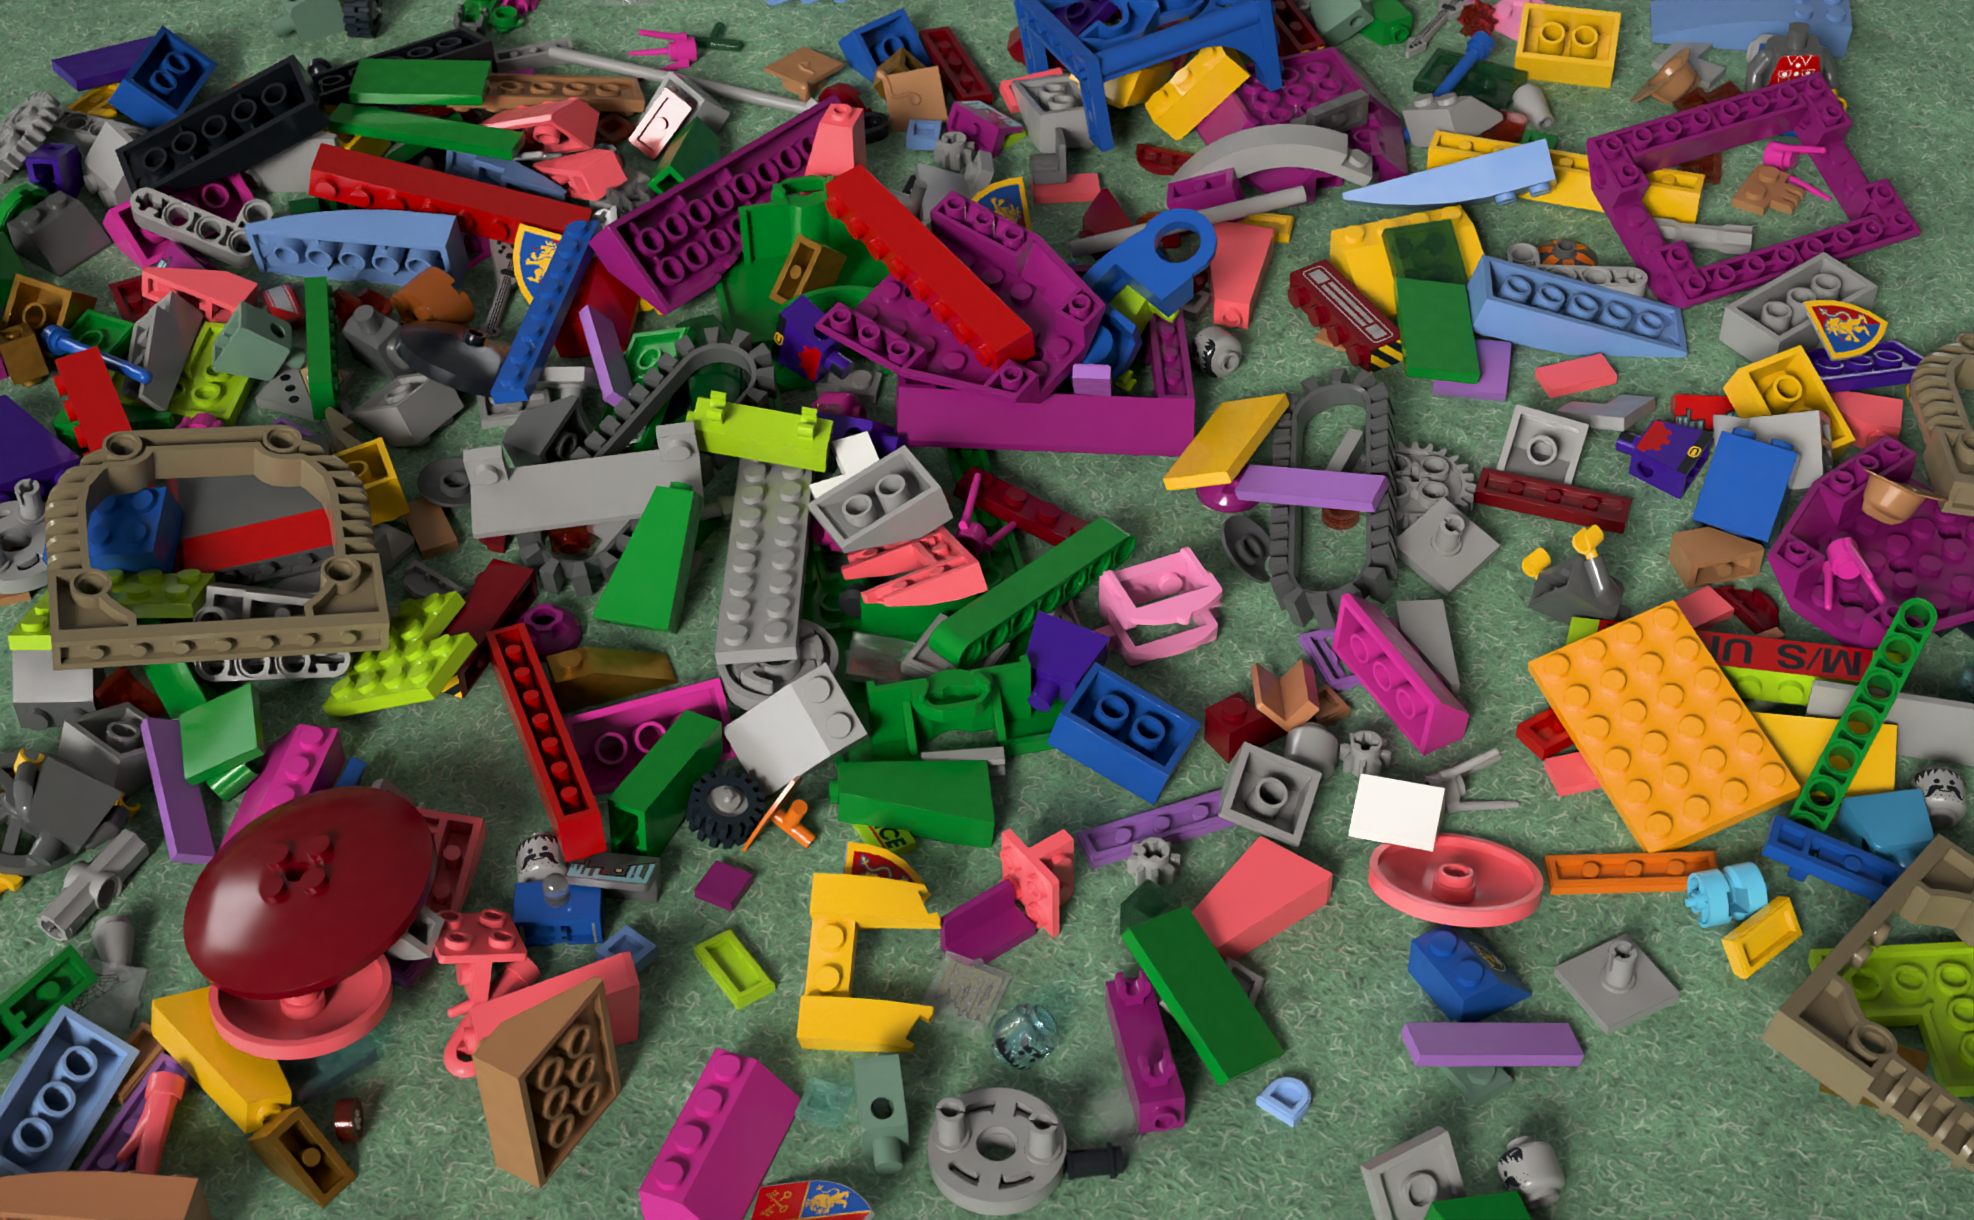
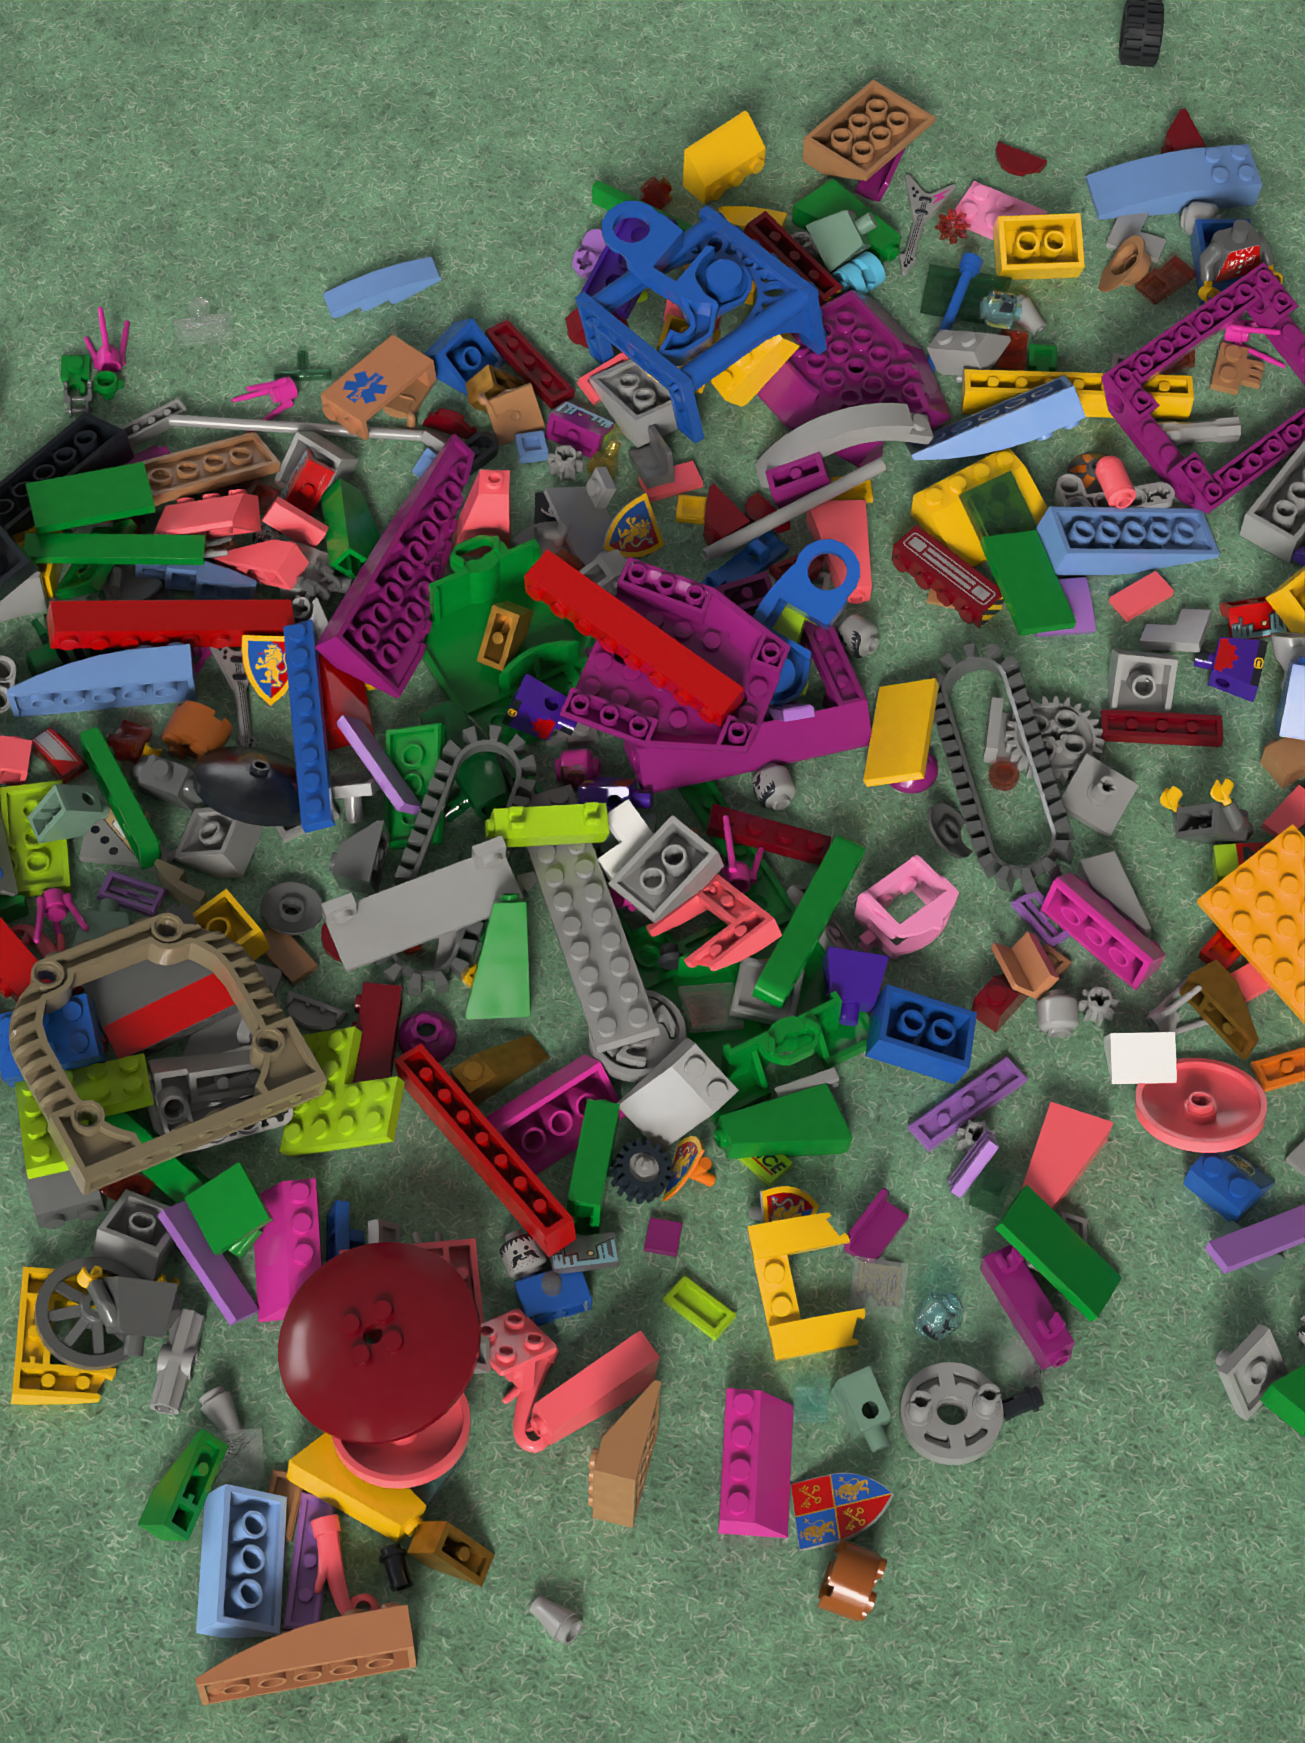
camera: 20 degrees left, 15 degrees up
(230, 1152) = (396, 1568): none -> black pin
(348, 1120) = (472, 1513): clear red tile -> none
(625, 940) = (616, 1316): medium blue plate -> none
(628, 144) = (295, 523): none -> coral tile
(774, 44) = (375, 383): none -> nougat panel
(1003, 156) = (606, 459): none -> clear yellow piece
(1040, 876) = (903, 1181): coral bracket -> none
(1057, 469) = (773, 786): none -> light grey head
(1072, 214) = (691, 509): none -> yellow tile
(1138, 874) = (973, 1163): none -> medium lavender tile
(1160, 160) = (741, 434): dark red tile -> none
(1268, 794) = (1044, 1065): light grey slope -> none
(1286, 1099) = (1134, 1315): light blue tile -> none
(1312, 488) = (987, 769): medium lavender tile -> none
(1338, 114) = (880, 378): flat silver panel -> none
(1358, 42) = (861, 274): none -> medium azure wheel
(1499, 88) = (1000, 309): none -> clear light blue head
(1523, 784) = (1223, 1007): none -> pearl gold slope
(1575, 252) = (1115, 482): none -> coral head

